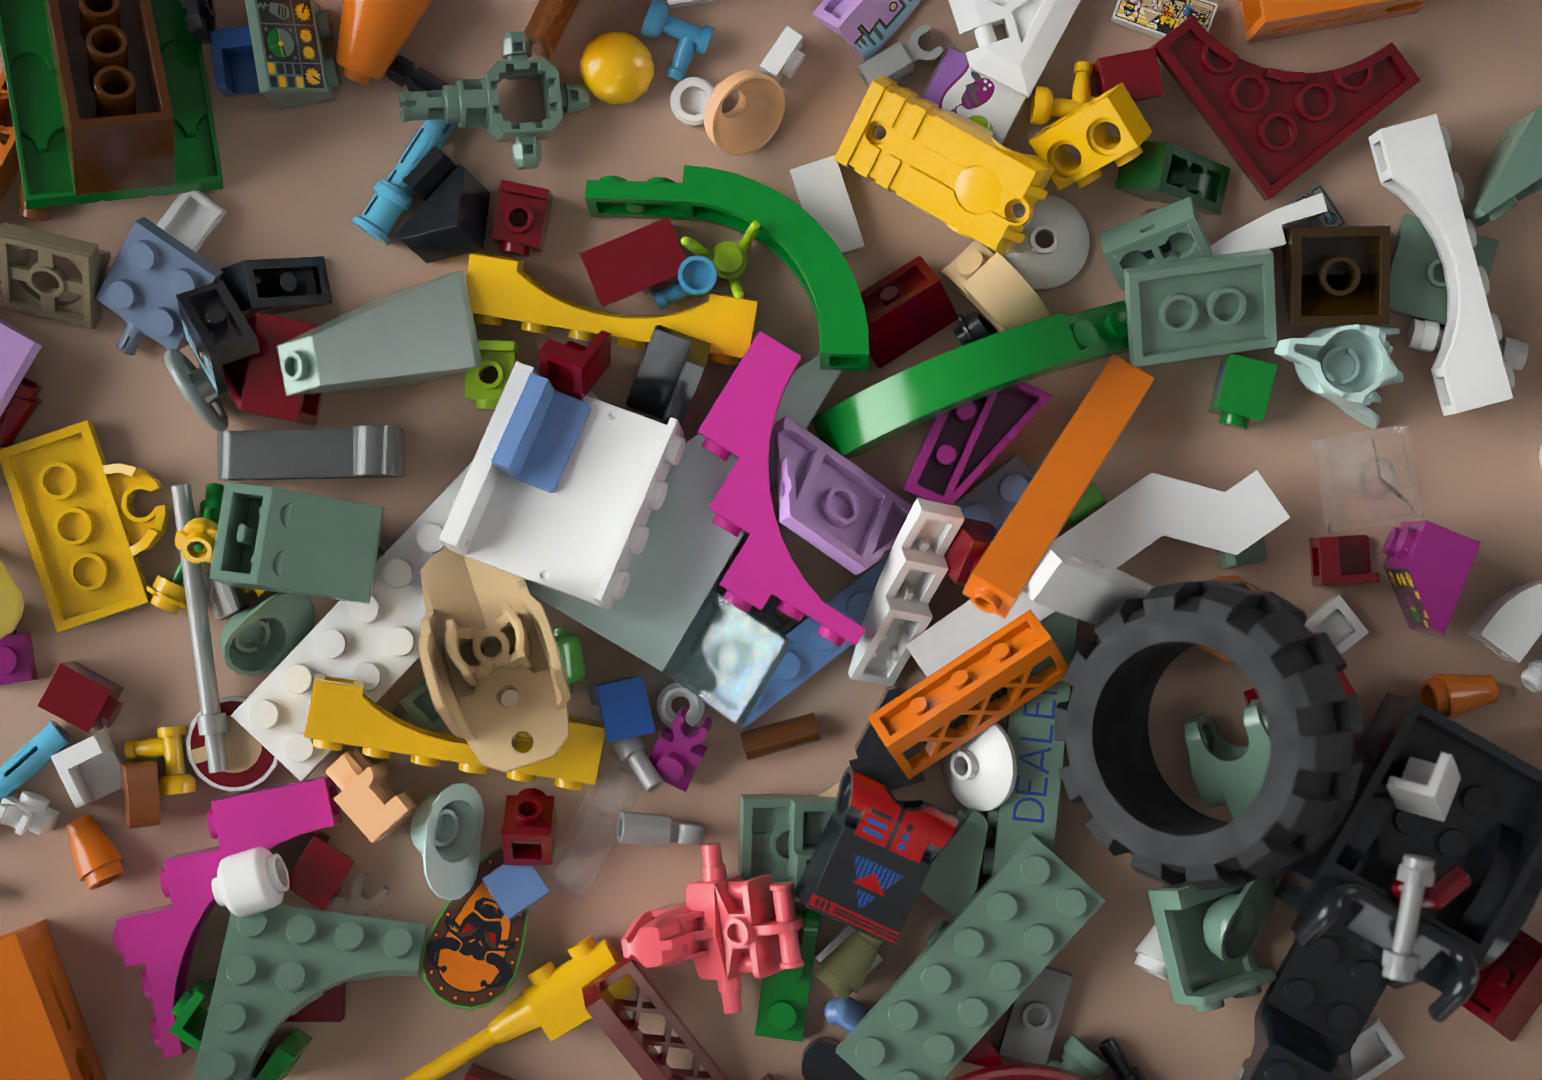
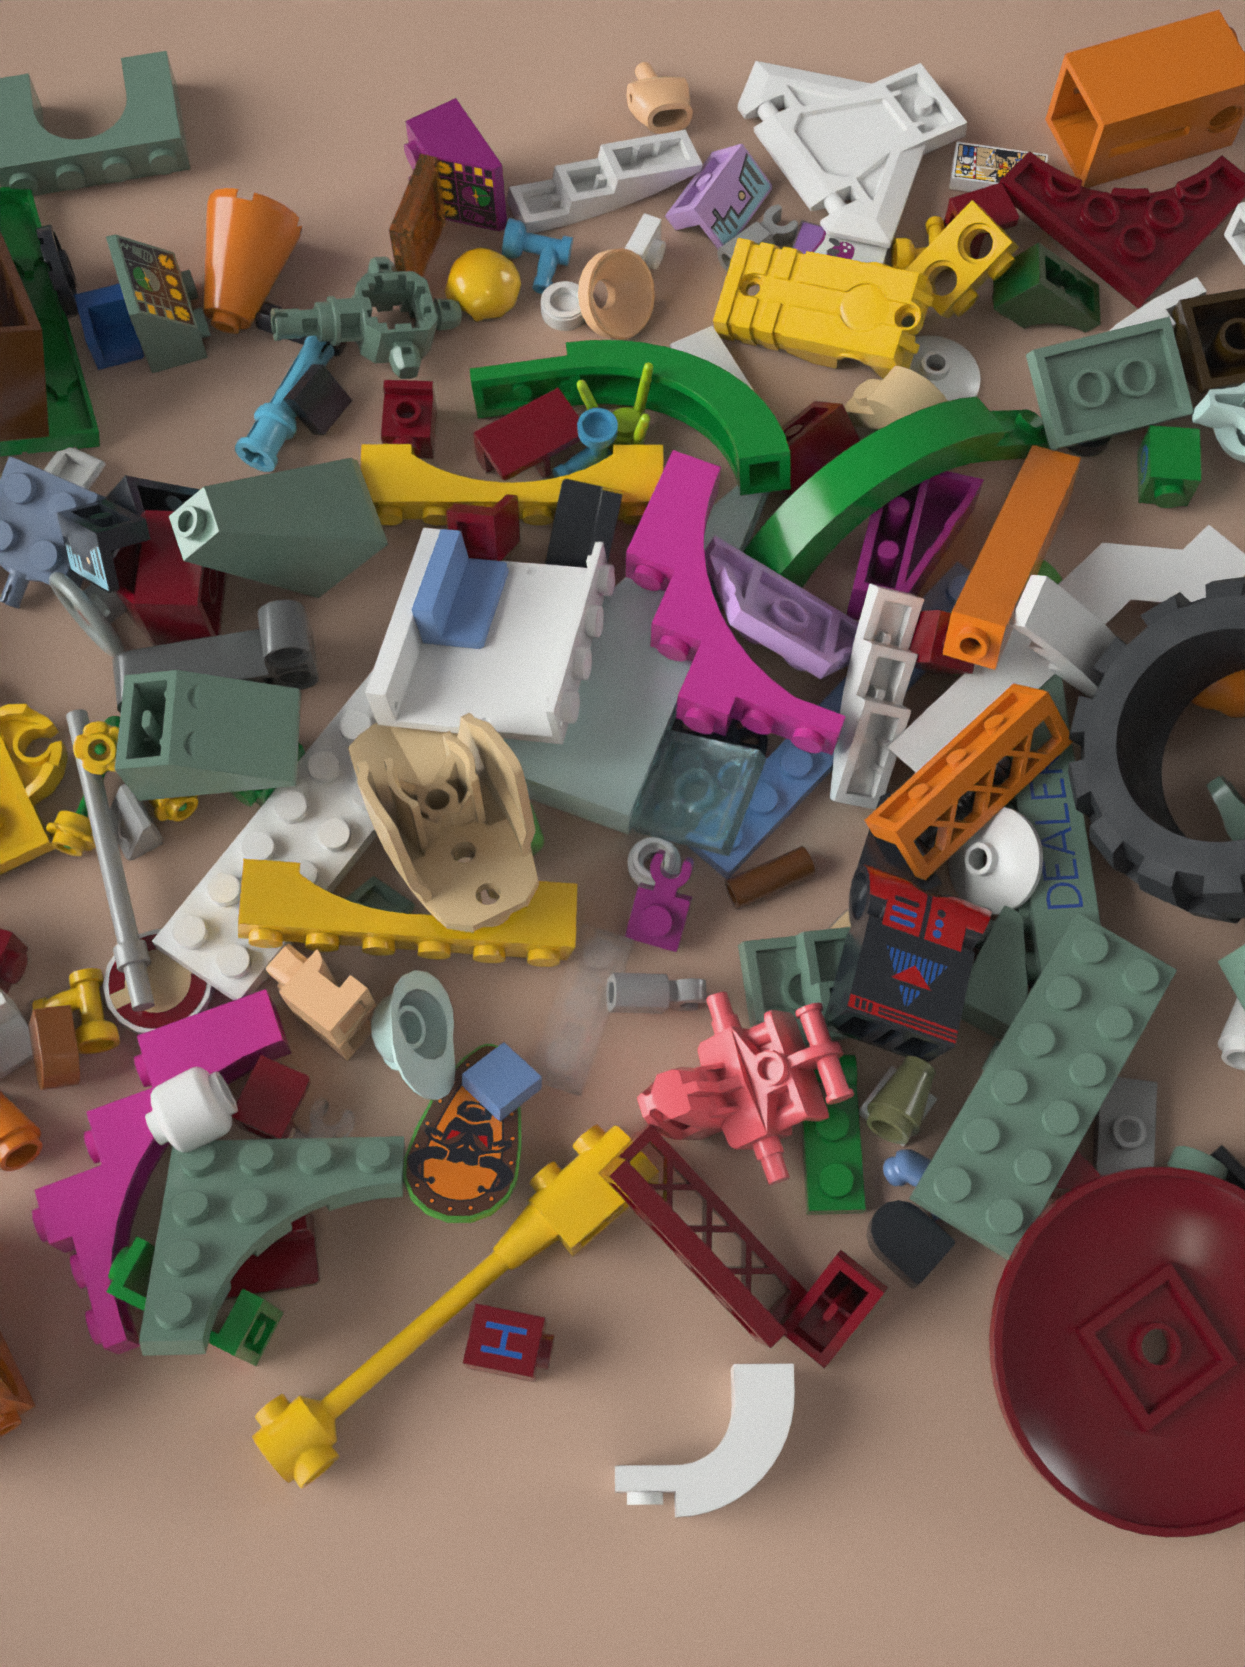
camera: 10 degrees left, 20 degrees down
(266, 634) = (182, 850): sand green cap -> none
(450, 220) = (332, 428): black slope -> none
(499, 355) = (393, 561): lime brick -> none
(529, 818) = (504, 1001): dark red brick -> none
(623, 708) = (593, 862): blue panel -> none
(633, 752) = (609, 913): light grey bar -> none
(1156, 238) = (1061, 323): sand green piece -> none

